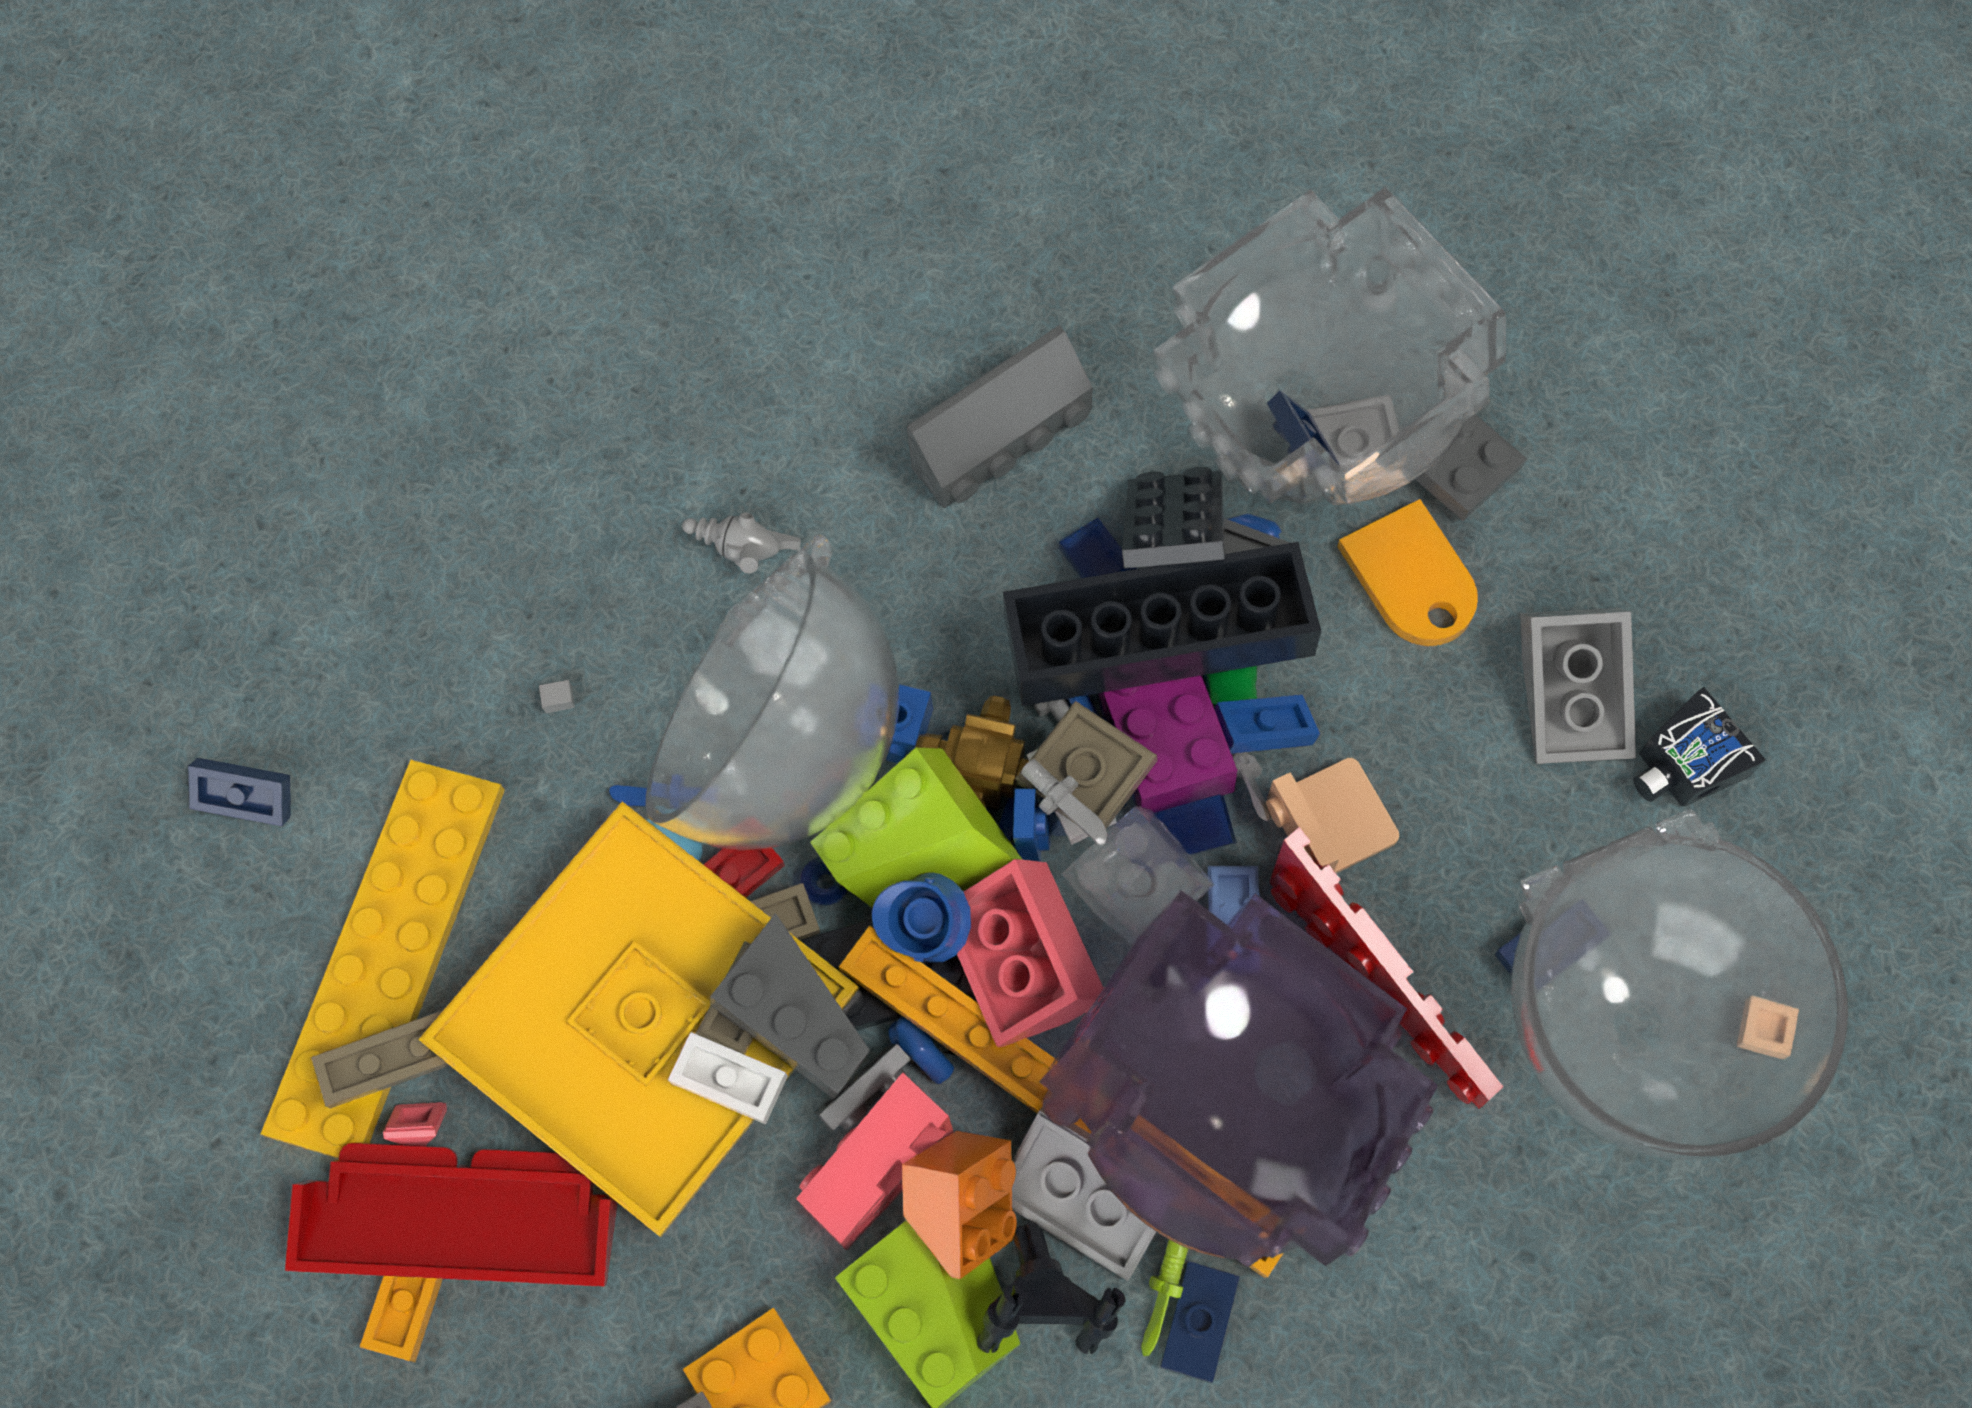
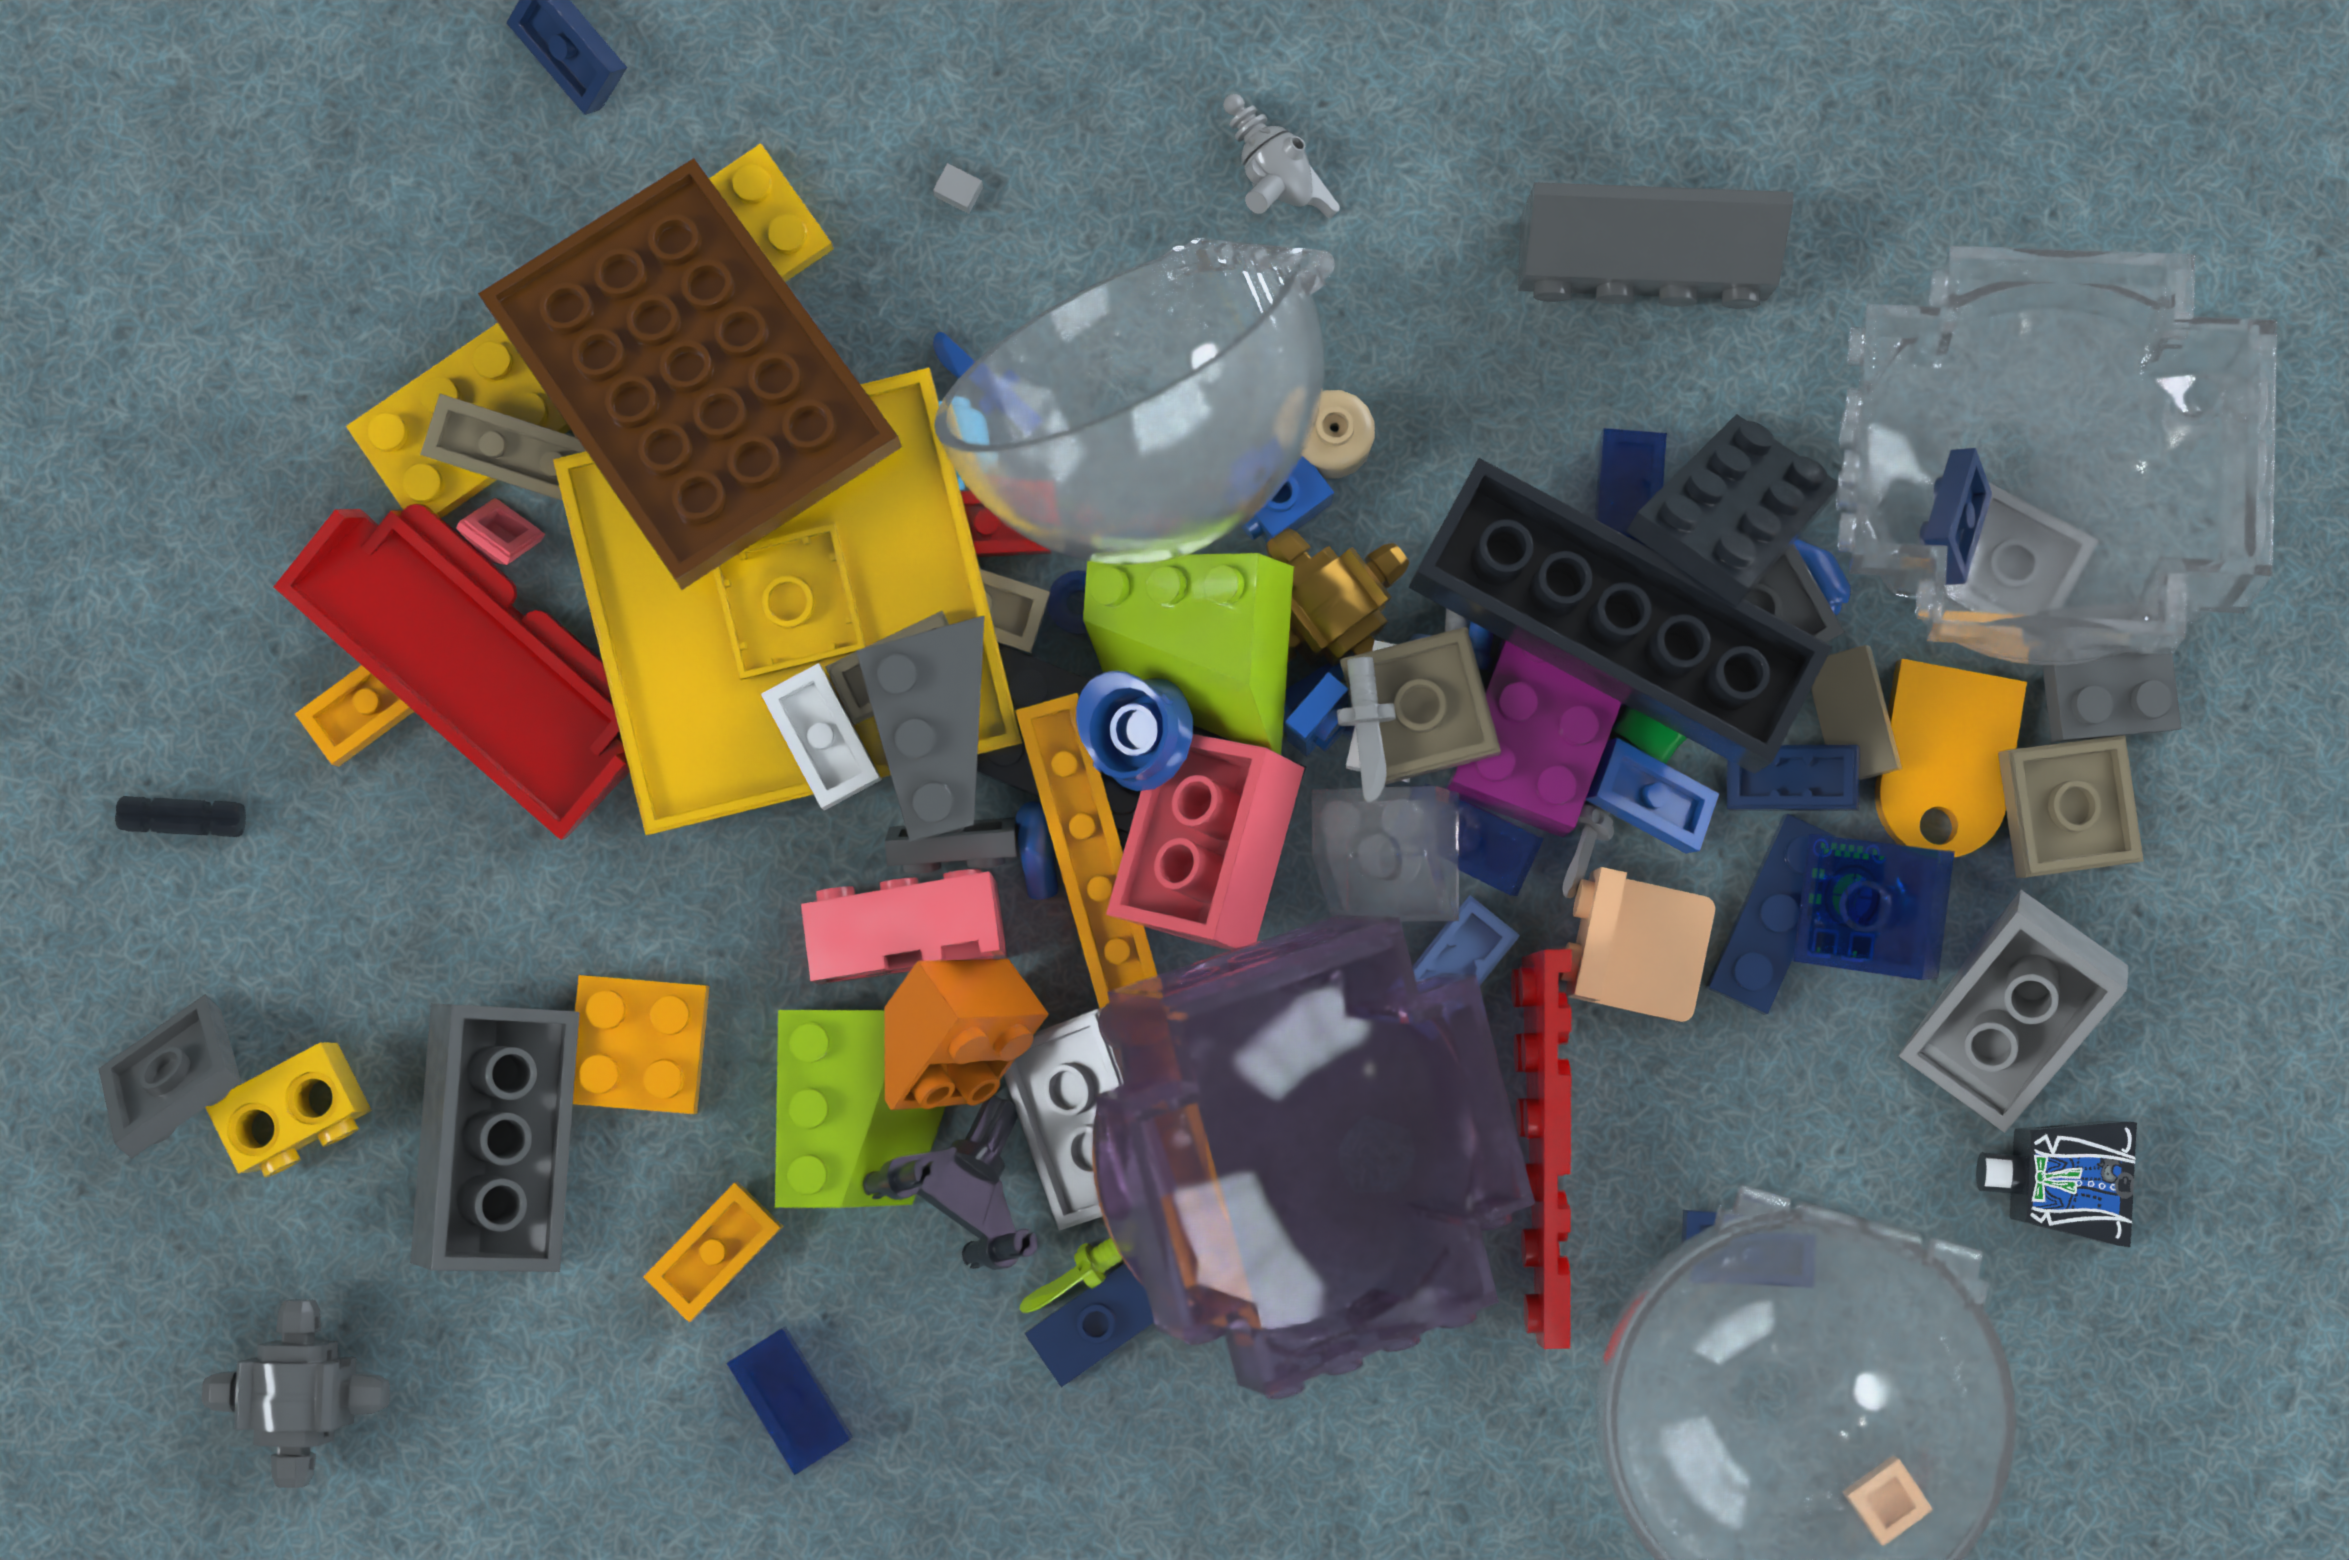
camera: 35 degrees right, 15 degrees up
(469, 918) = (689, 372): none -> reddish brown plate
(912, 657) = (1348, 448): none -> tan head
(1339, 651) = (1798, 781): none -> dark blue plate
(1344, 592) = (1855, 710): none -> dark tan tile
(1395, 739) = (1767, 923): none -> dark blue plate
(1446, 684) = (1873, 906): none -> clear blue slope
(1505, 547) = (2070, 806): none -> dark tan tile

